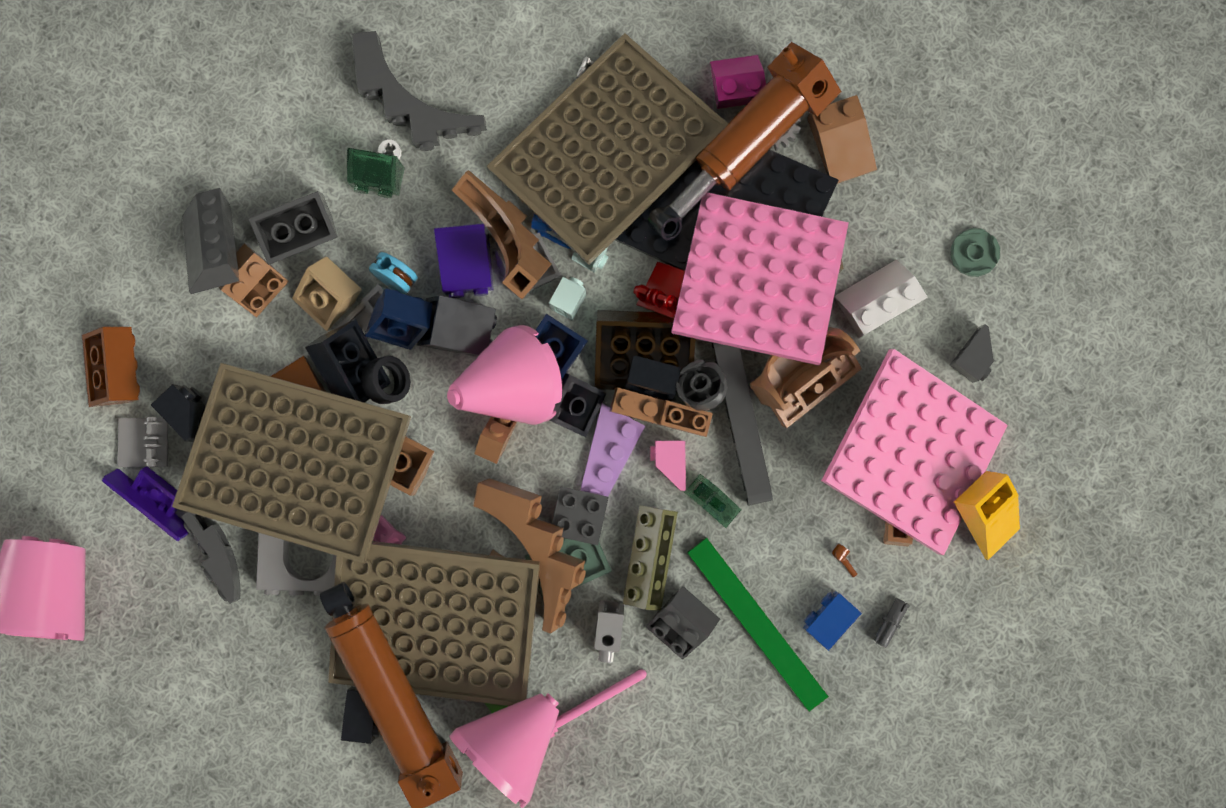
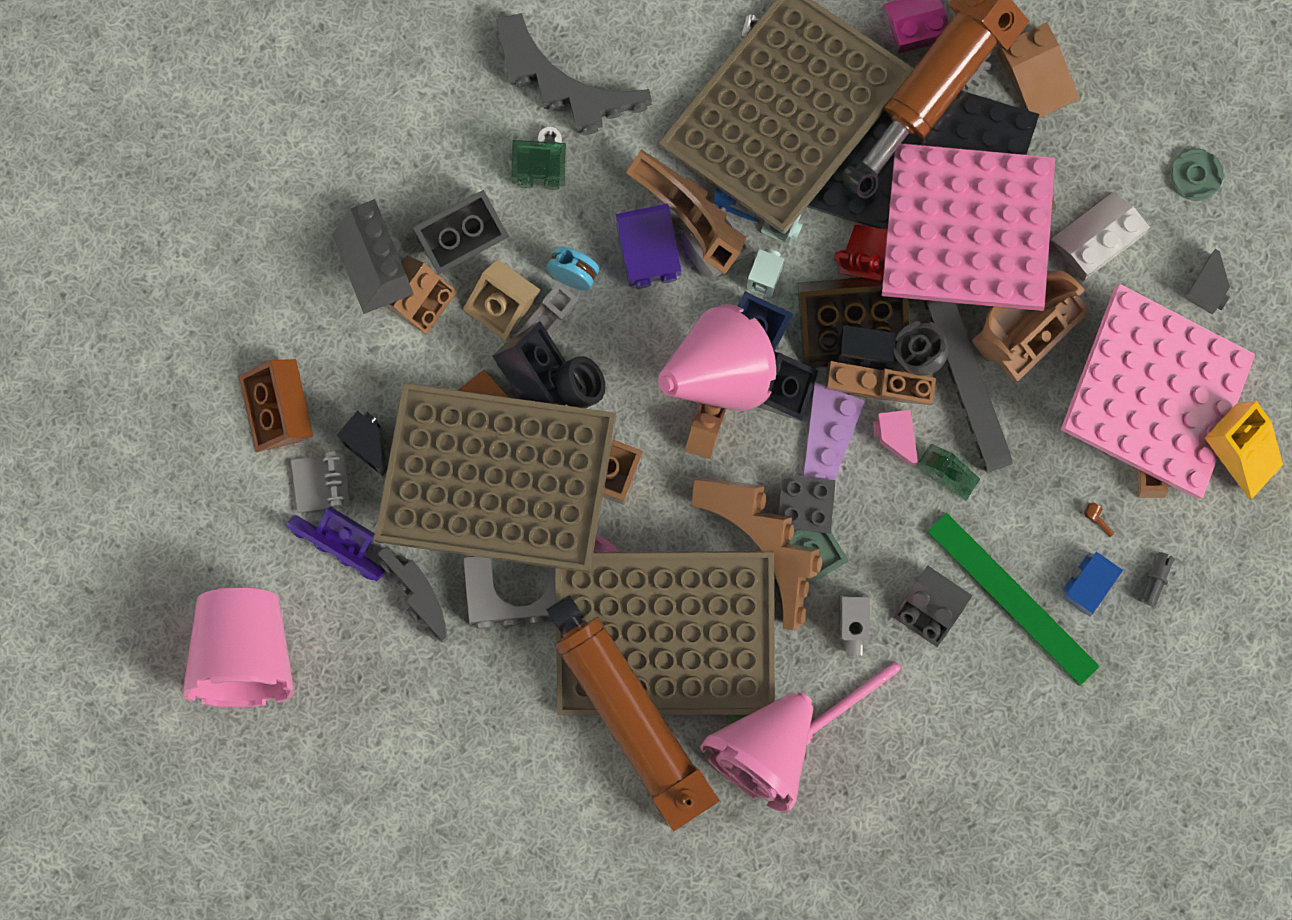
camera: 10 degrees left, 5 degrees down
(357, 721) = (597, 747): black brick -> none
(399, 319) = (587, 316): dark blue slope -> none
(459, 326) = (647, 317): black slope -> none
(650, 558) = (888, 539): olive brick -> none

